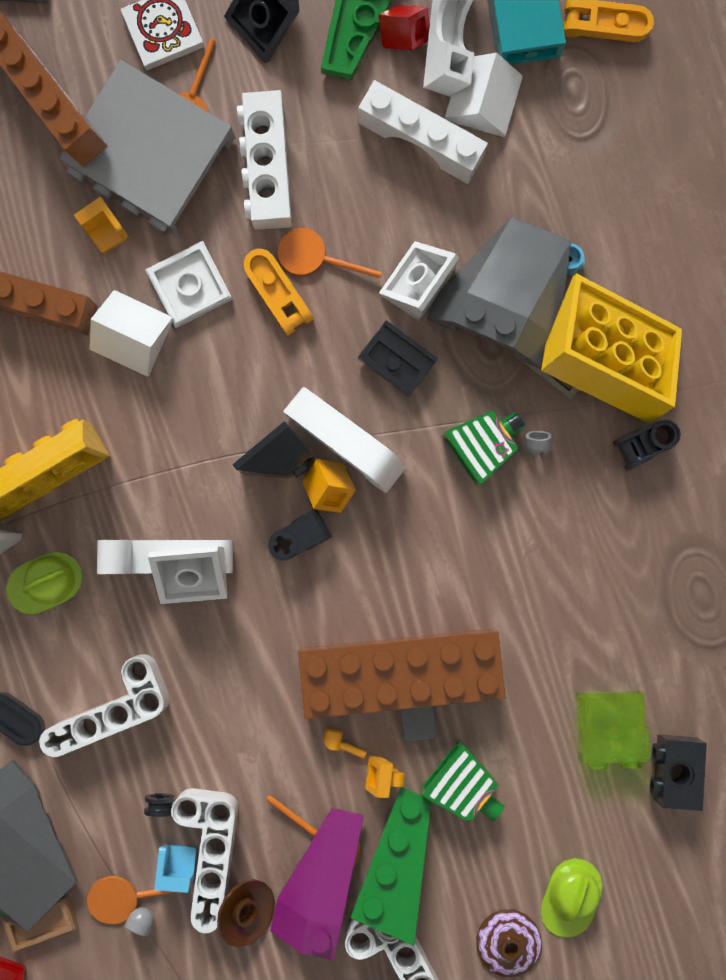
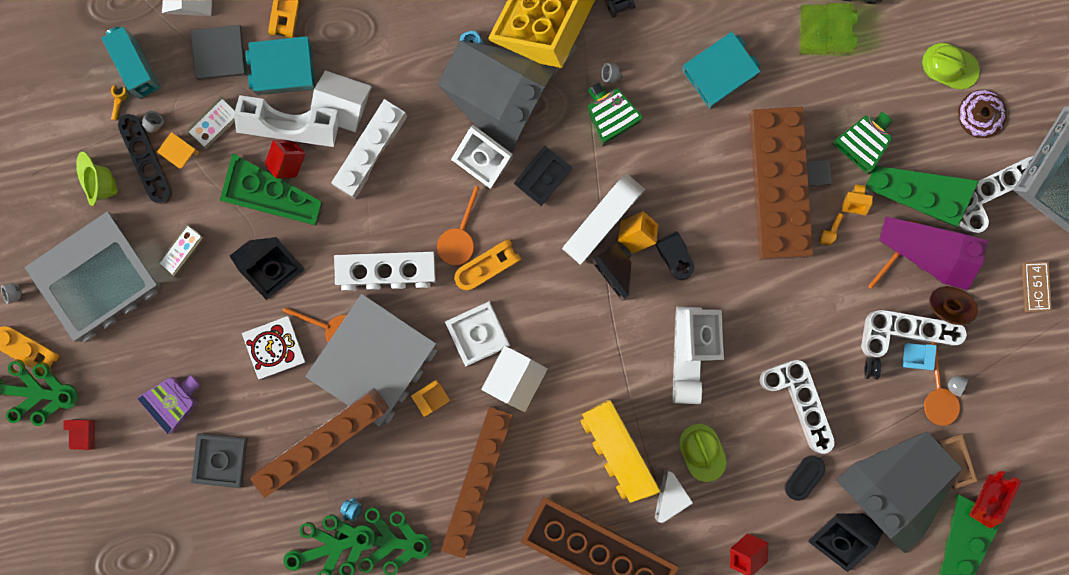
camera: 80 degrees left, 0 degrees up
(551, 588) = (721, 69): none -> teal brick

